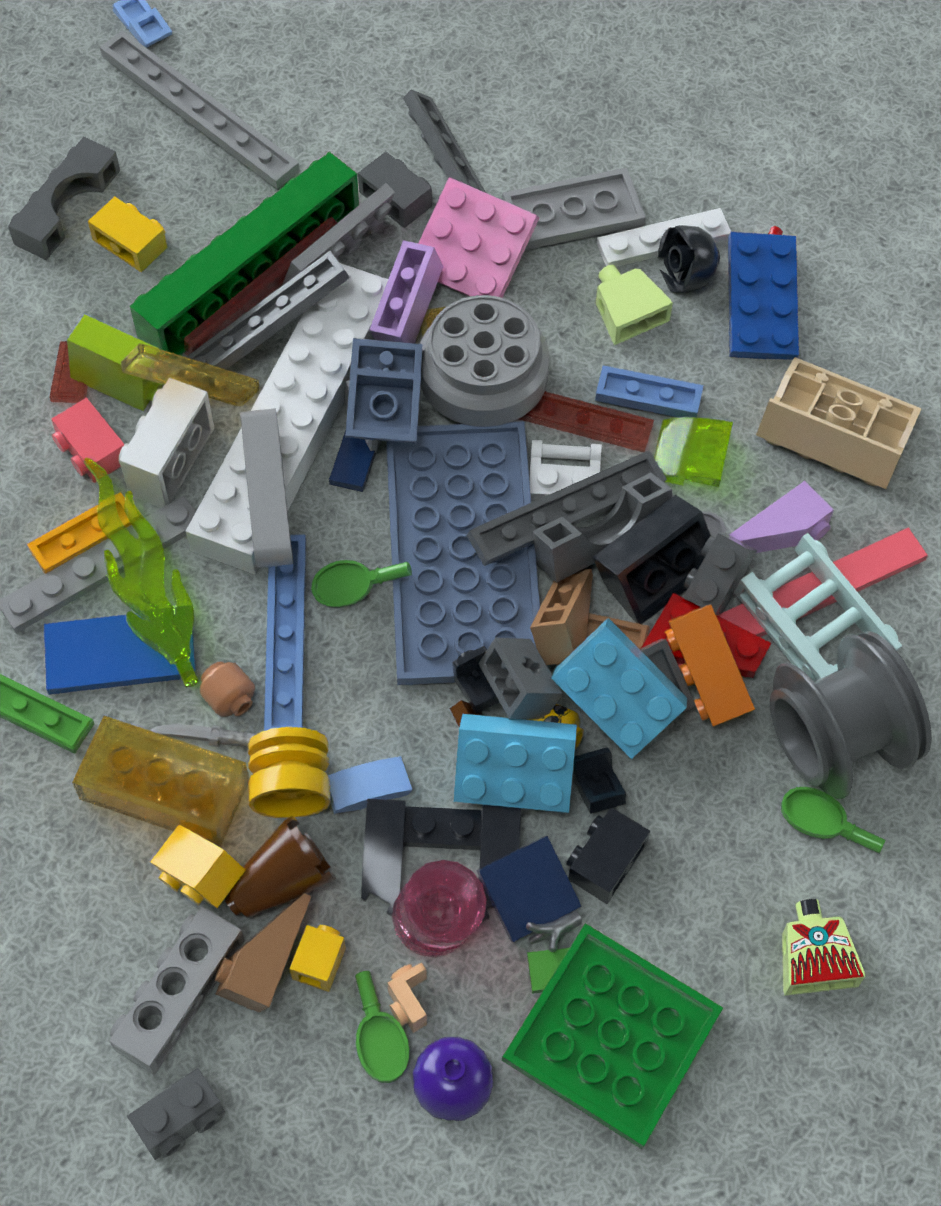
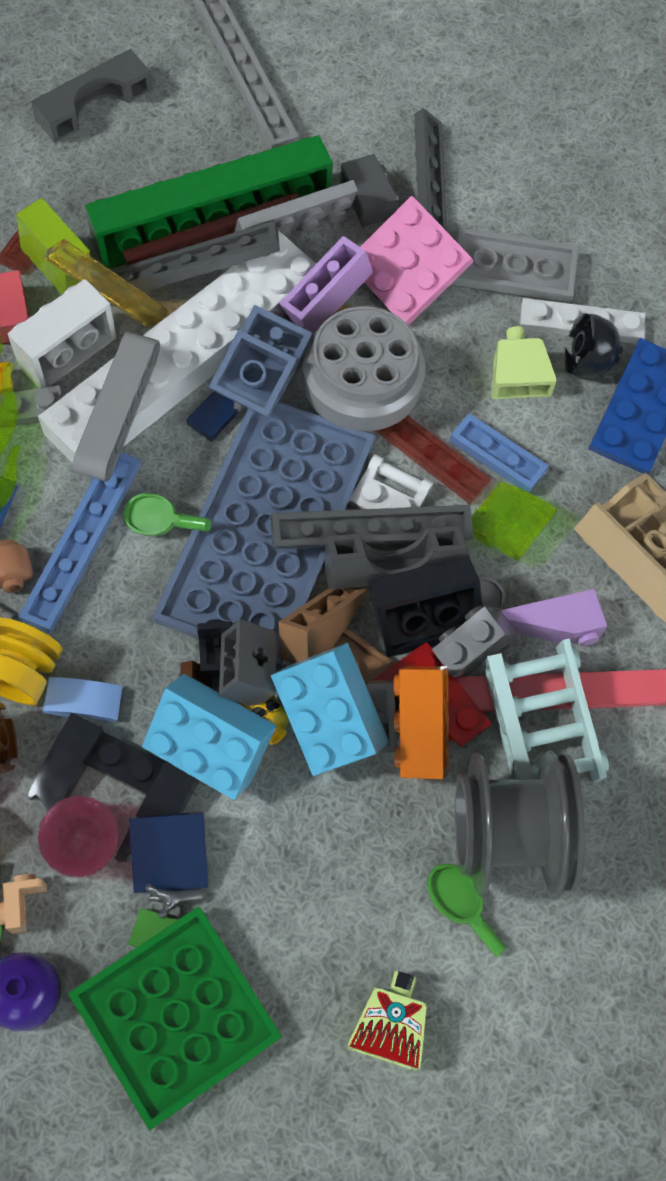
camera: 20 degrees right, 5 degrees up
(128, 233) = (128, 144): yellow brick -> none
(598, 781) = (277, 782): black bracket -> none
(607, 855) = (252, 851): black brick -> none

